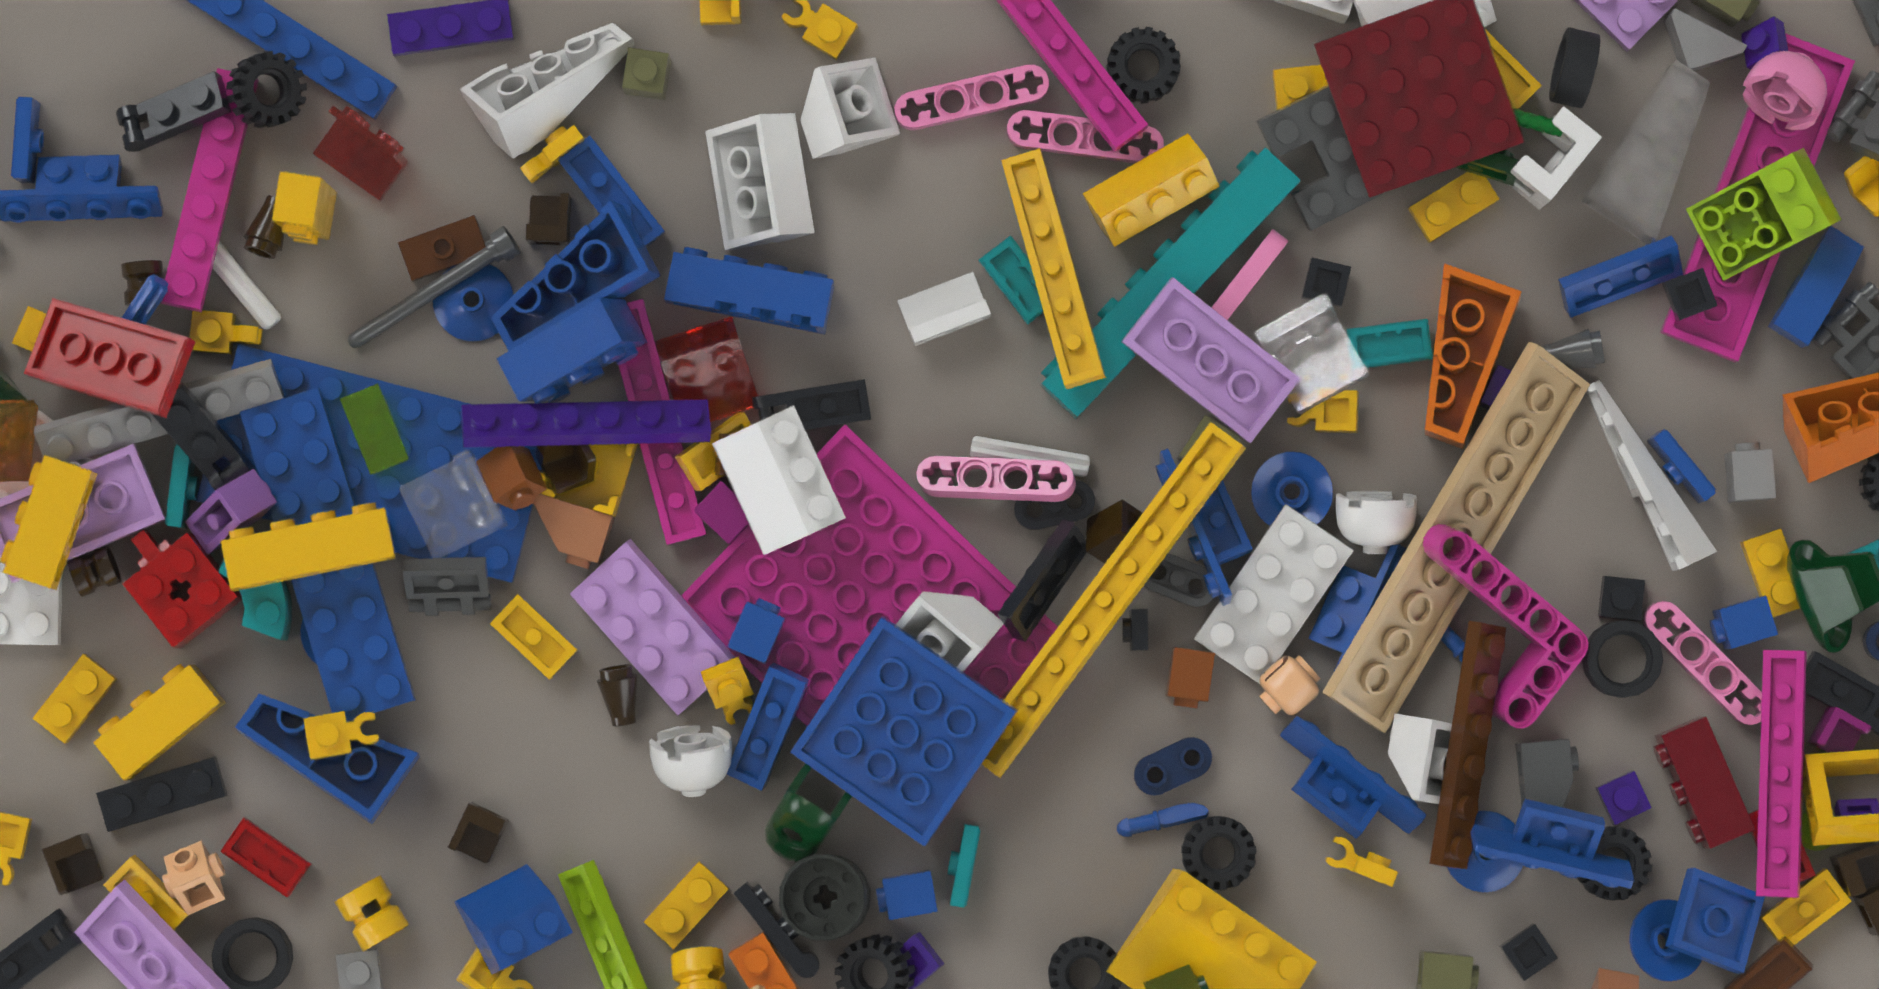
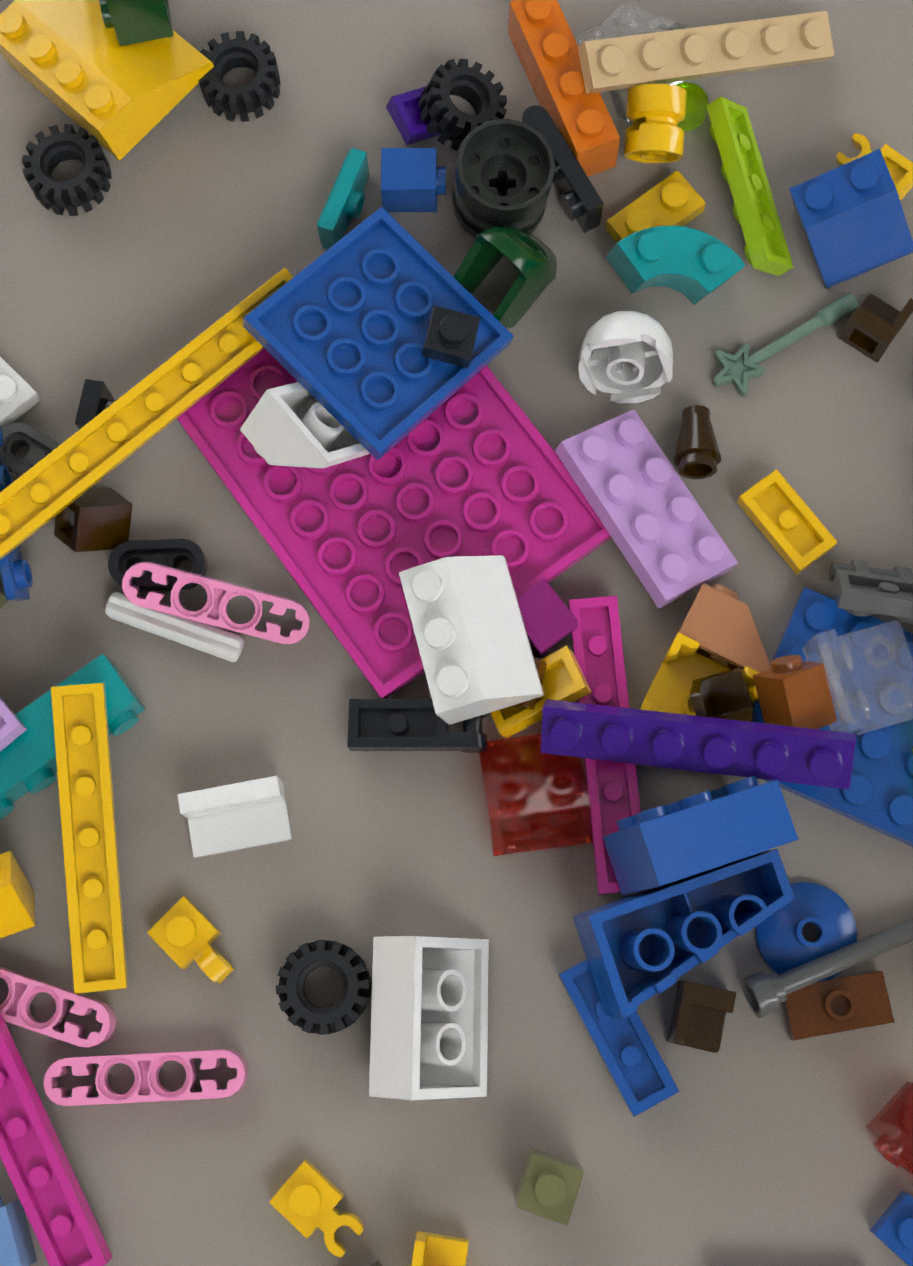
camera: 160 degrees left, 10 degrees down
(532, 99) = (694, 1182): white wedge -> none
(558, 144) = (674, 1112): yellow plate -> none
(589, 776) = (742, 367): none -> sand green piece
(664, 852) = (674, 259): none -> teal brick
(729, 687) = (571, 420): yellow plate -> none
(750, 291) = (464, 877): blue wedge -> none
(757, 630) = (528, 472): blue brick -> none
(767, 726) = (532, 374): blue plate -> none
(841, 733) = (450, 336): none -> black plate
(842, 164) = (292, 987): none -> black tyre
(847, 108) = (303, 1091): white slope -> none
(963, 209) = (187, 937): none -> yellow plate
(1014, 277) = (143, 838): teal plate -> none
(1043, 580) = (187, 476): black plate -> none
(1163, 818) = (115, 217): blue piece -> none
(1173, 766) = (94, 271): dark blue plate -> none
(1189, 676) = (49, 352): dark orange brick -> none

